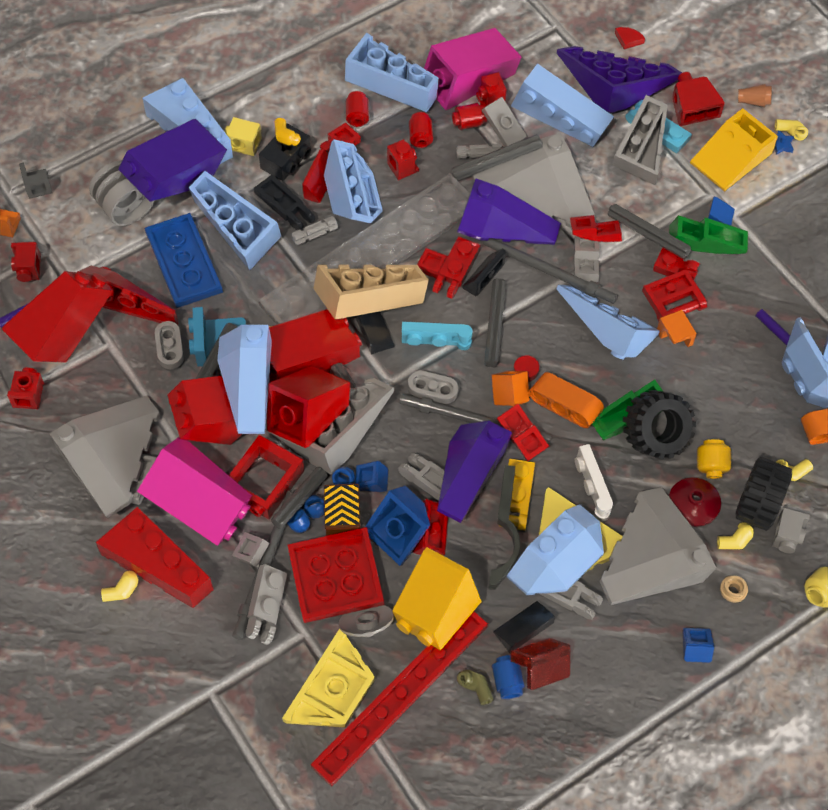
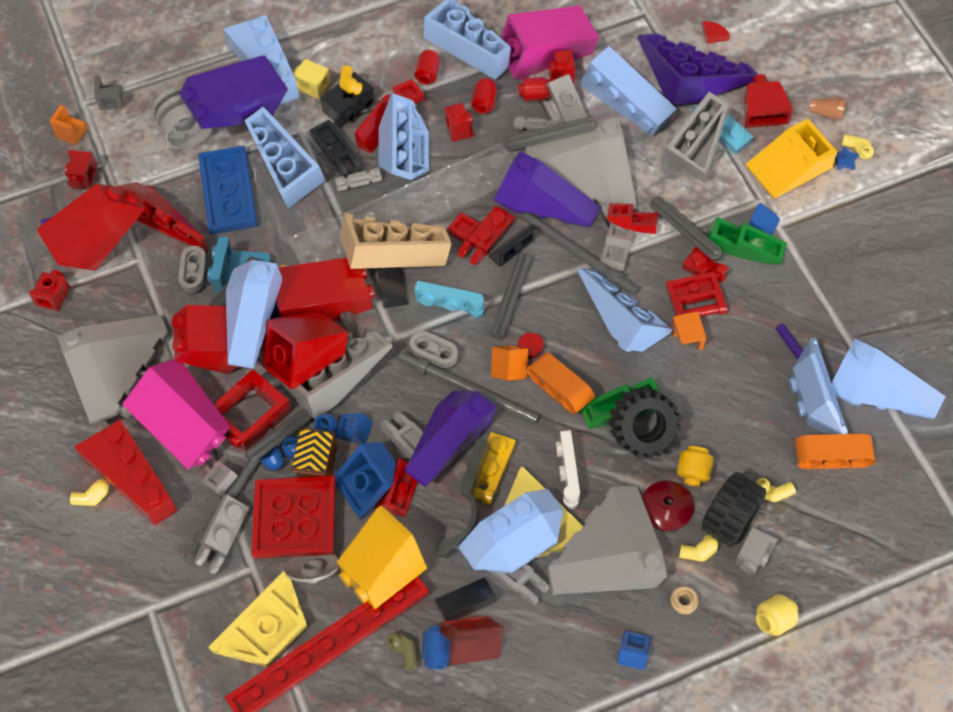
camera: 15 degrees right, 0 degrees up
(524, 433) = (509, 408): red slope -> none

